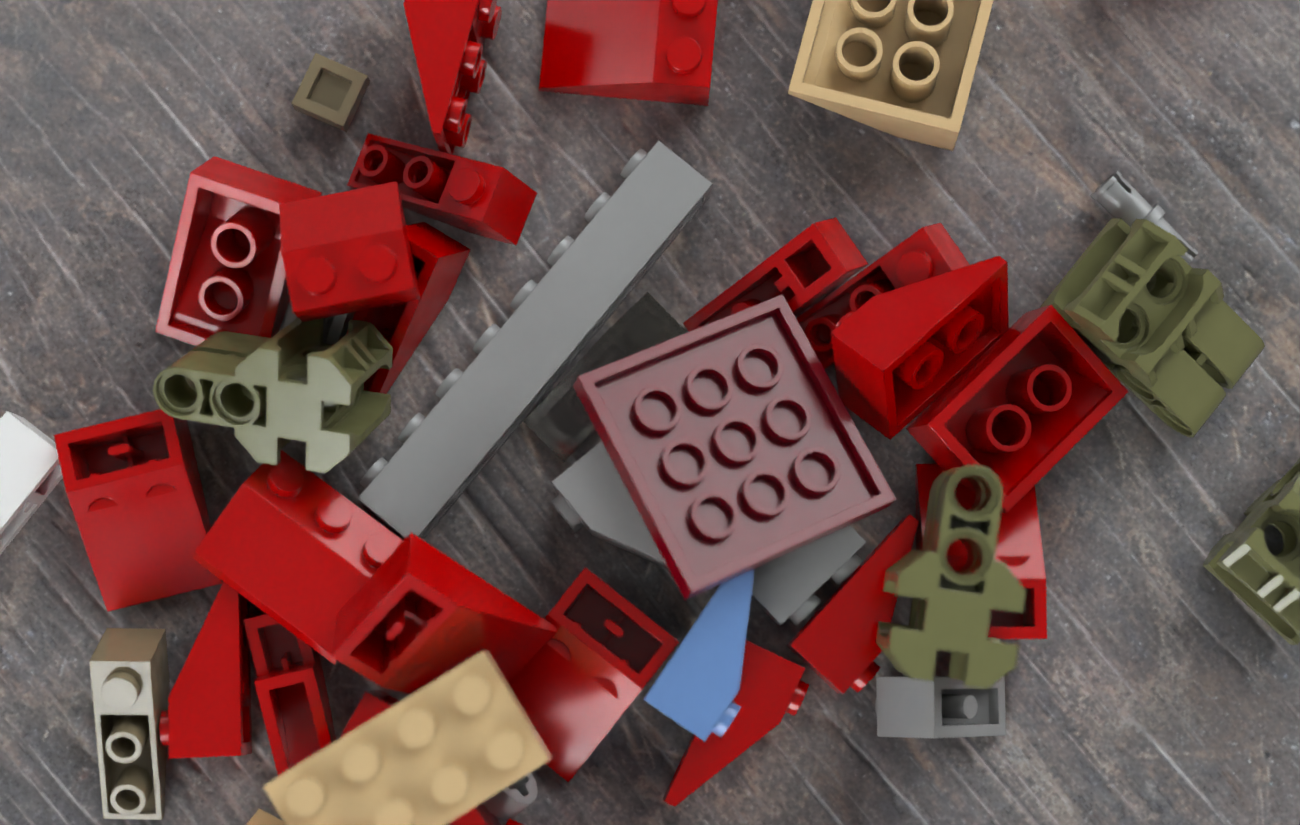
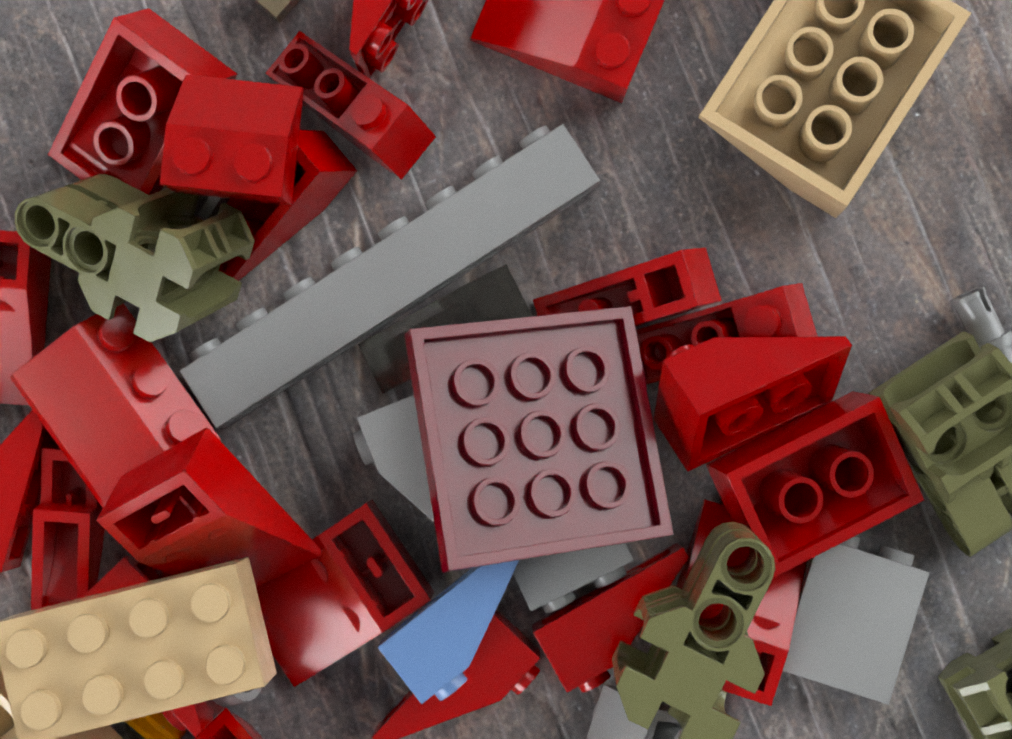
camera: 25 degrees right, 5 degrees up
(1101, 530) = (855, 619): none -> light grey brick

